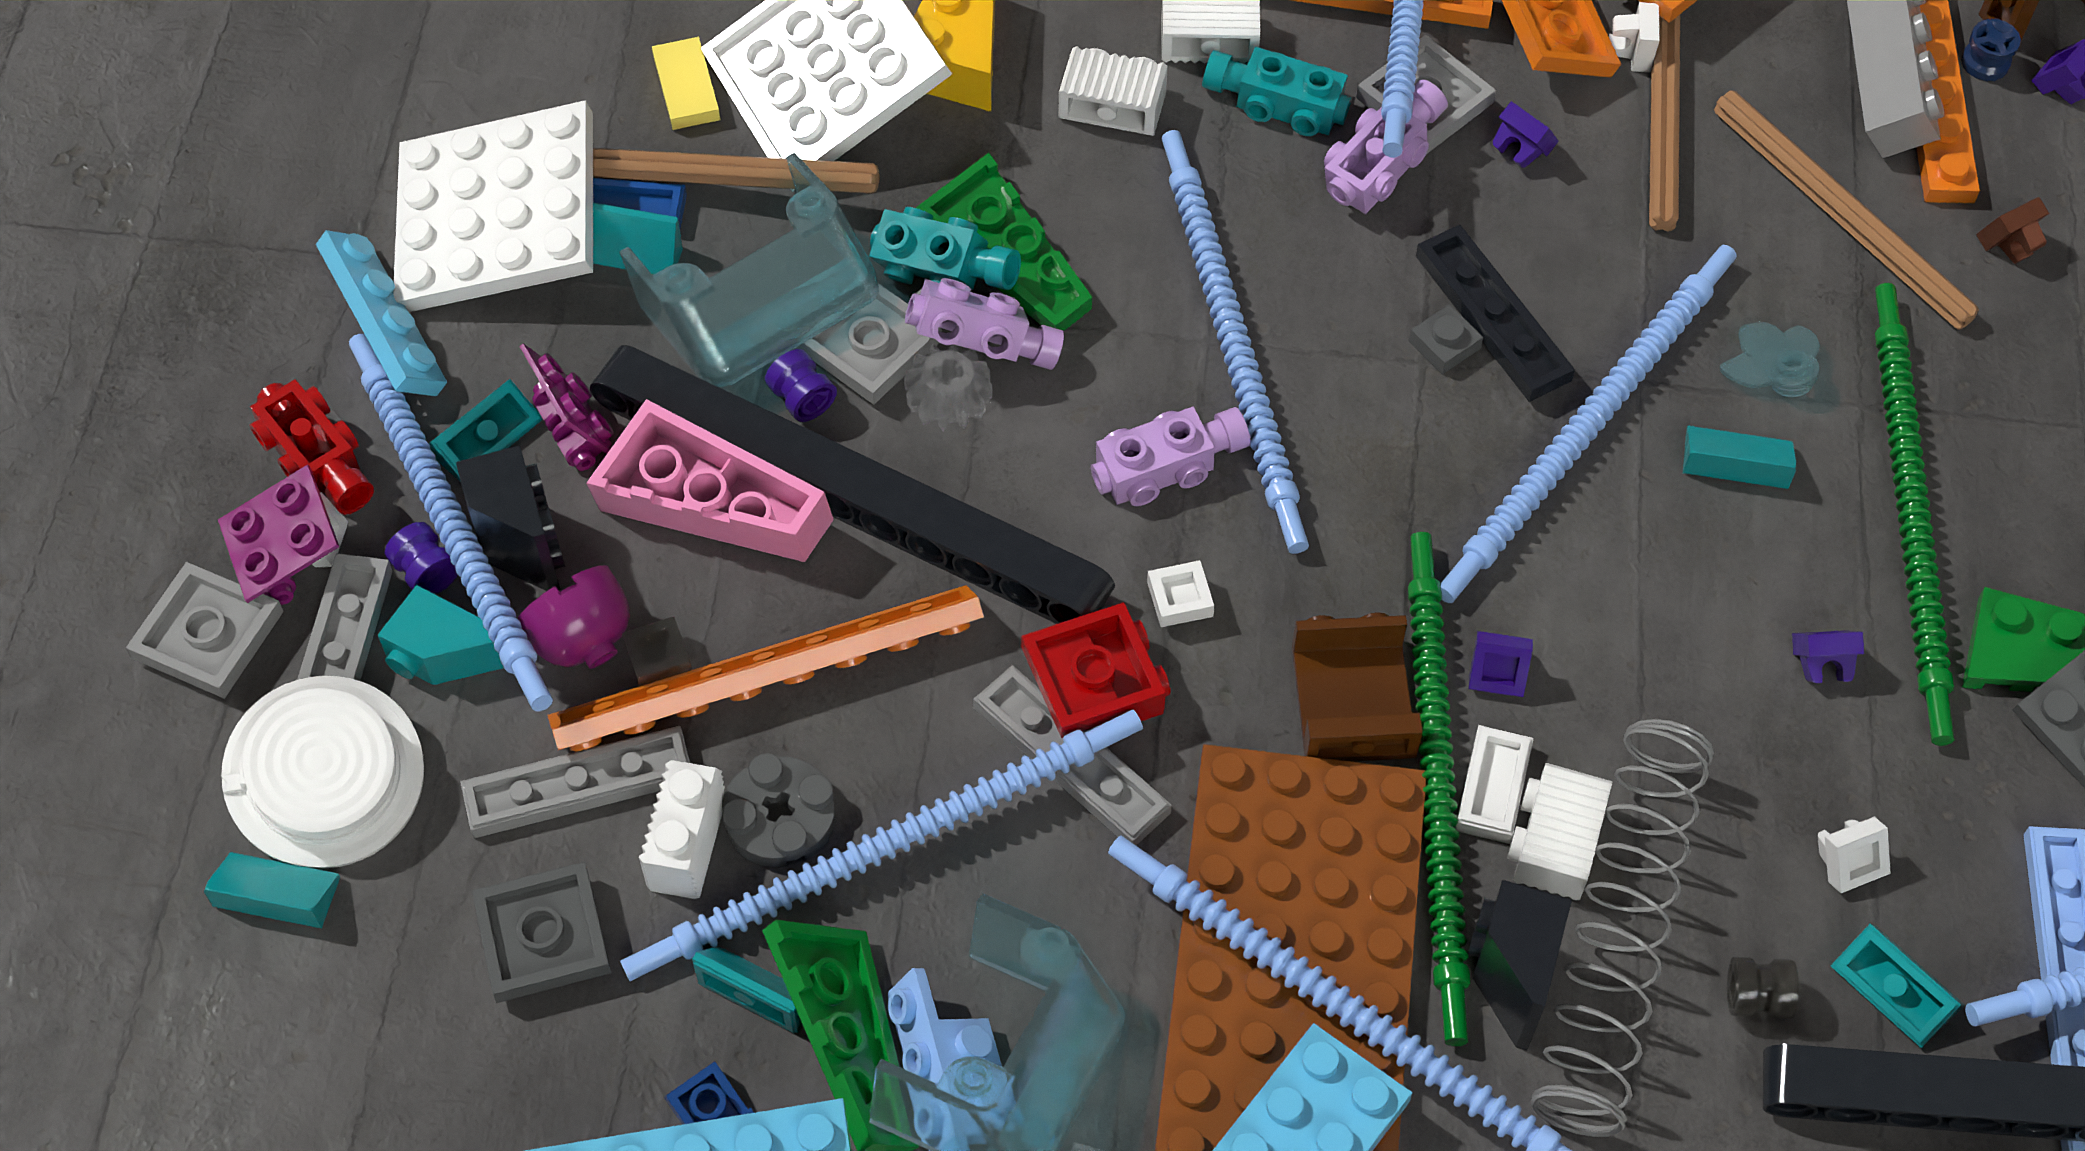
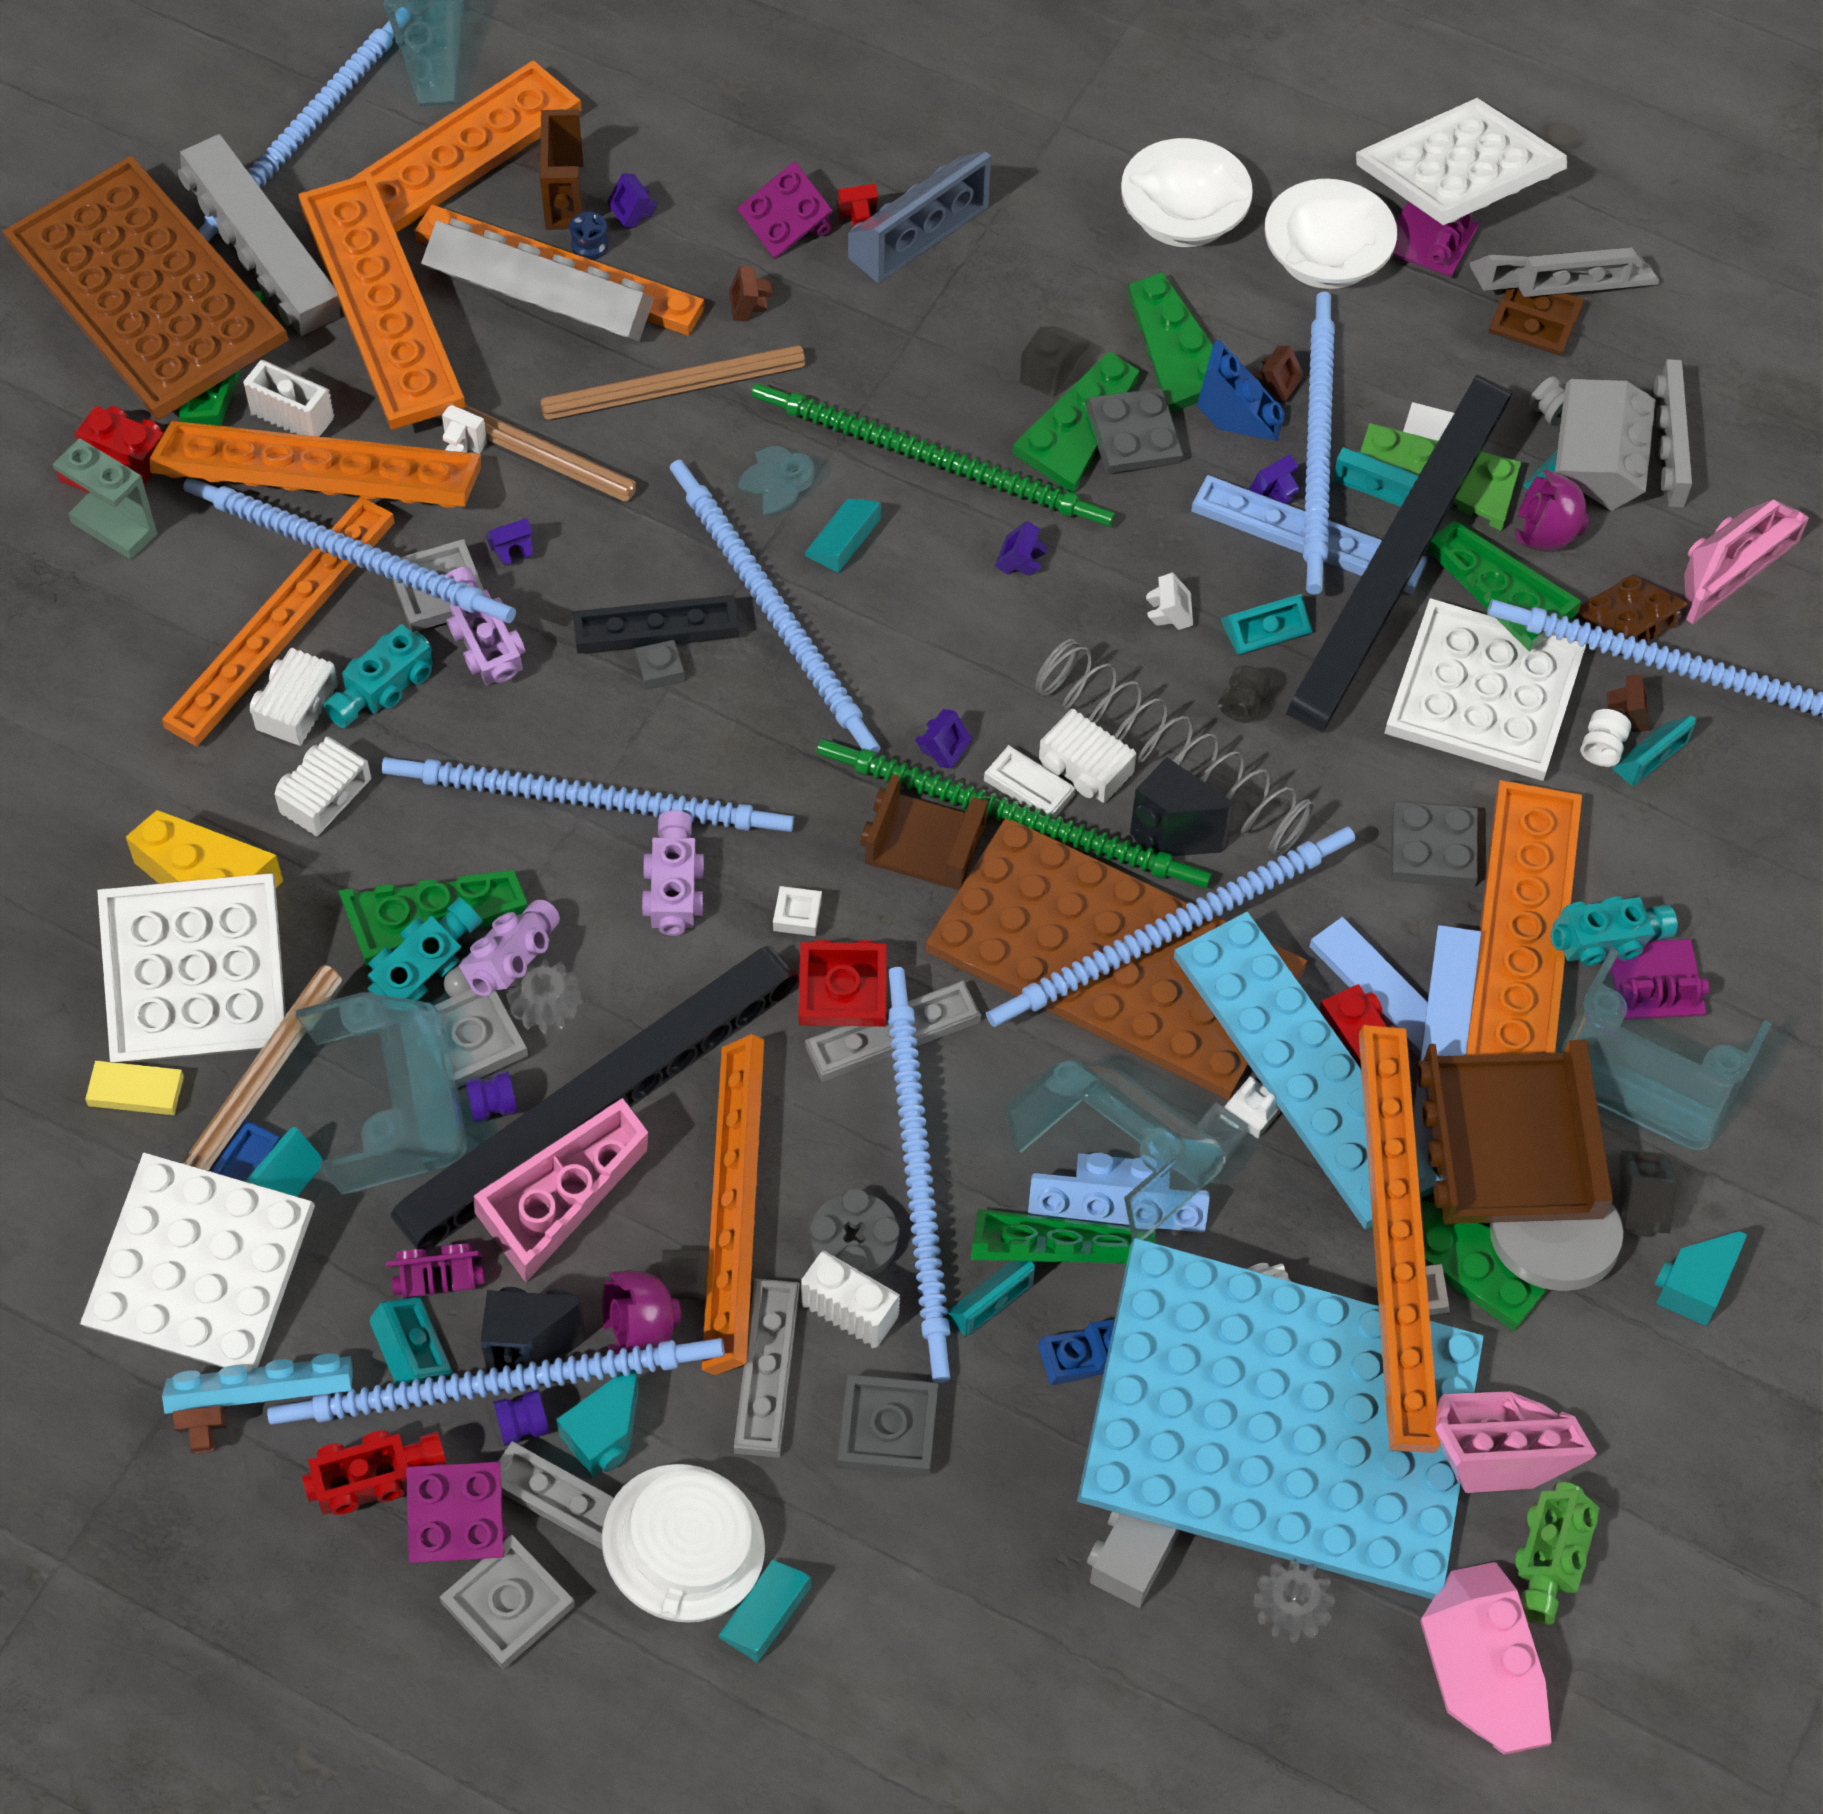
camera: 70 degrees left, 0 degrees up
(314, 282) = (200, 1425): none -> copper tile

